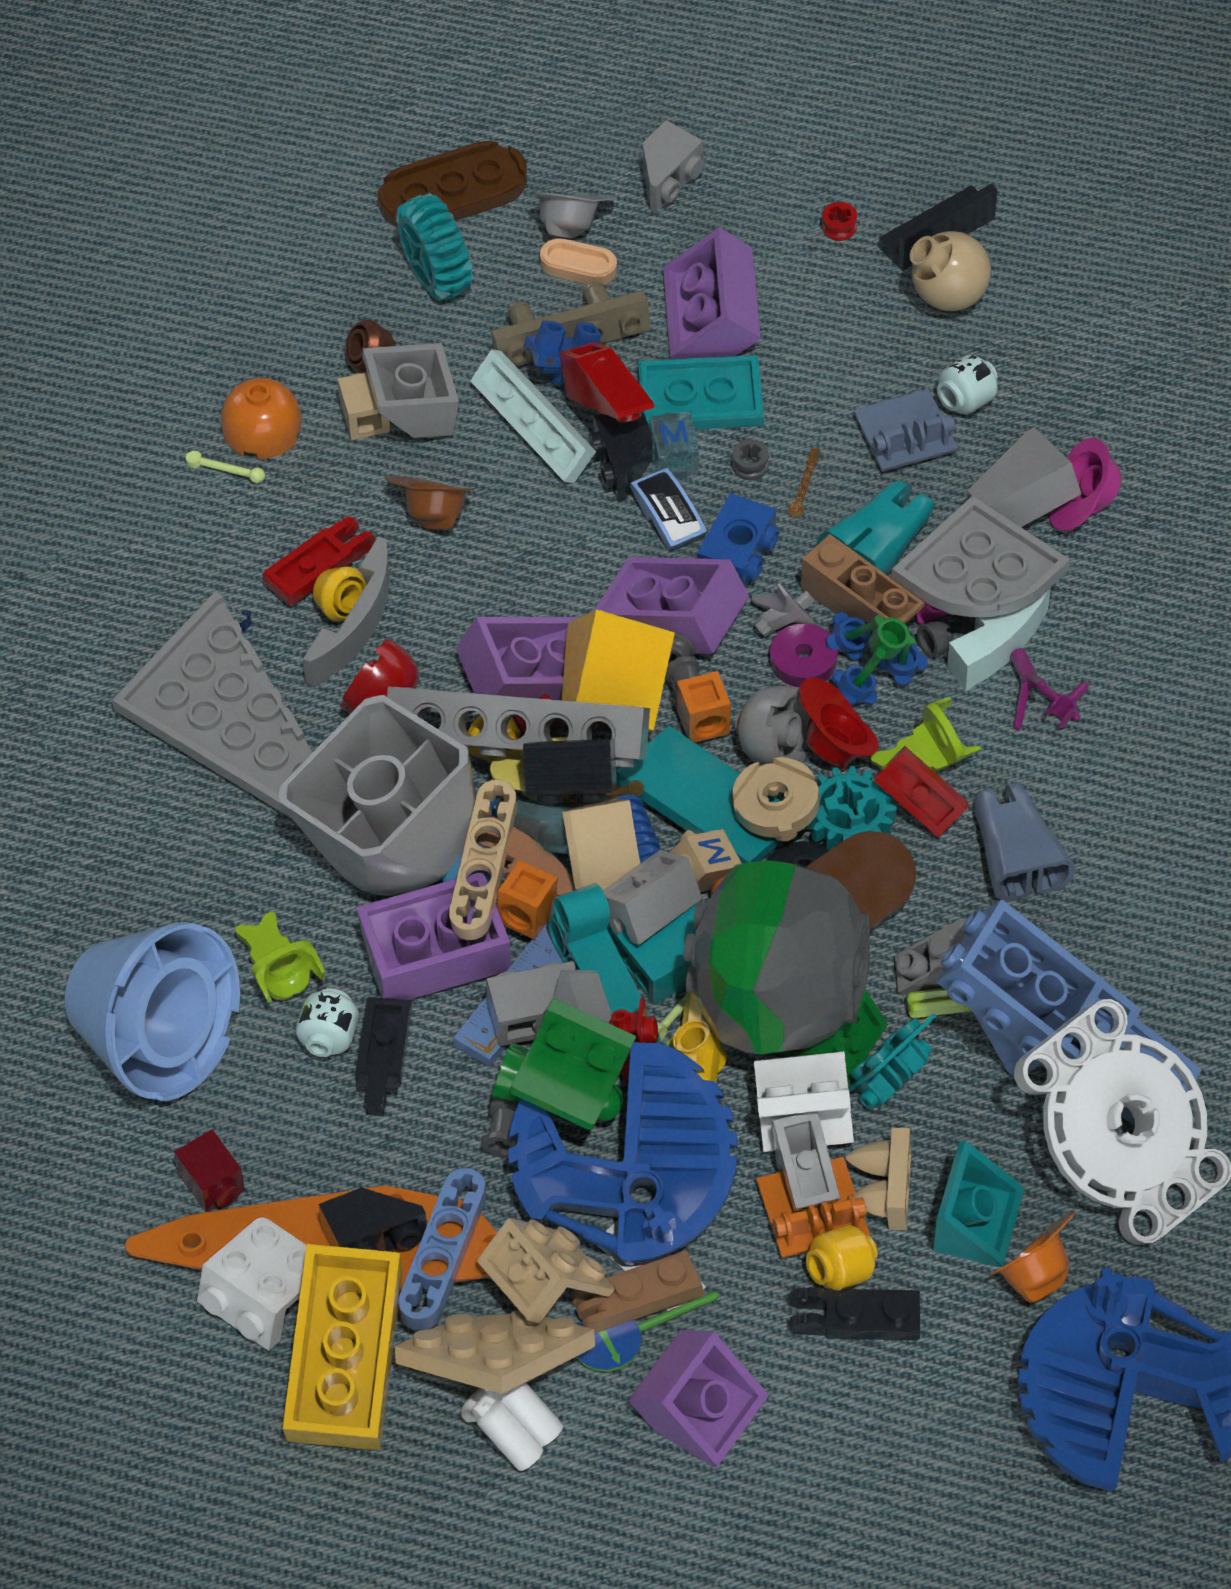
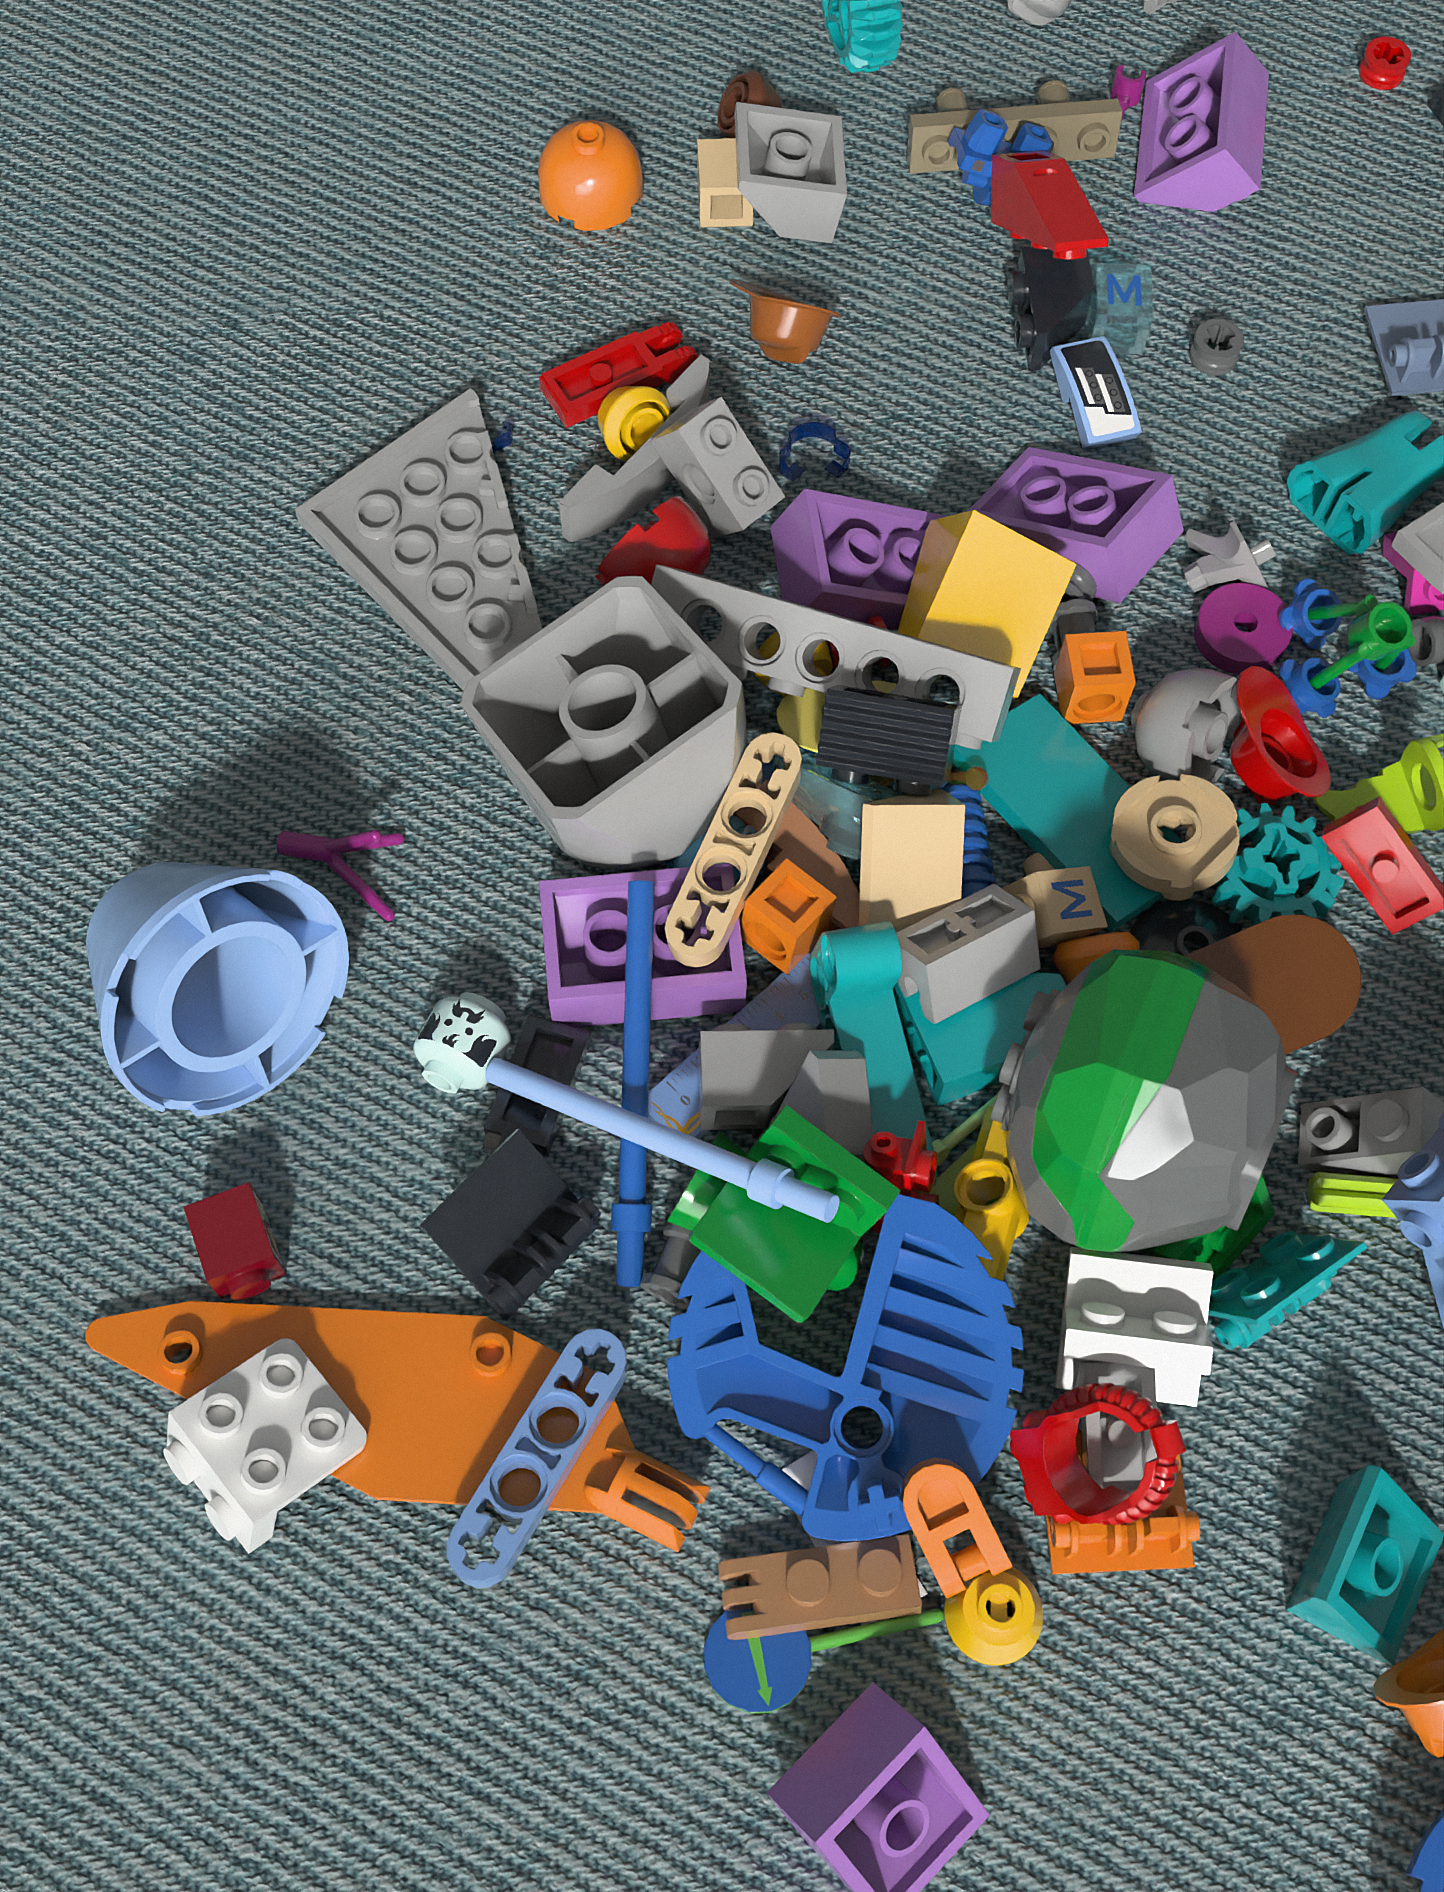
camera: 10 degrees right, 10 degrees up
(195, 460) = (495, 215): yellowish green hinge -> none
(219, 913) = (331, 850): none -> magenta plant
(278, 965) = (420, 940): lime hair -> none
(343, 1347) = (340, 1610): yellow brick -> none
(372, 1221) = (434, 1395): black slope -> none
(390, 1123) = (511, 1224): none -> black hinge
(410, 614) = (718, 468): none -> light grey brick
(465, 1104) = (631, 1214): none -> blue bar
(474, 573) = (818, 430): none -> clear blue piece
(494, 1349) = (576, 1664): tan plate -> none
(514, 1422) = (579, 1783): white piece -> none
(533, 416) = (941, 237): light aqua plate -> none
(538, 1264) = (680, 1534): tan bracket -> none
(549, 1046) = (765, 1181): none -> light blue bar
(578, 261) = (1038, 54): light nougat tile -> none
(649, 279) = (1126, 89): none -> magenta hand
(699, 1215) = (942, 1504): none -> orange plate
(714, 390) = (1190, 247): teal tile -> none
(742, 535) = (1191, 443): blue brick -> none
(749, 1285) = (995, 1636): none -> yellow cone
(762, 1179) = (1058, 1481): none -> red piece
(796, 508) = (1267, 424): clear orange hinge -> none
(841, 1258) = (1146, 1606): yellow head -> none
(853, 585) = (1330, 541): medium nougat slope -> none
(857, 1313) = (1160, 1703): black hinge -> none
(890, 1160) = (1248, 1448): tan tile -> none

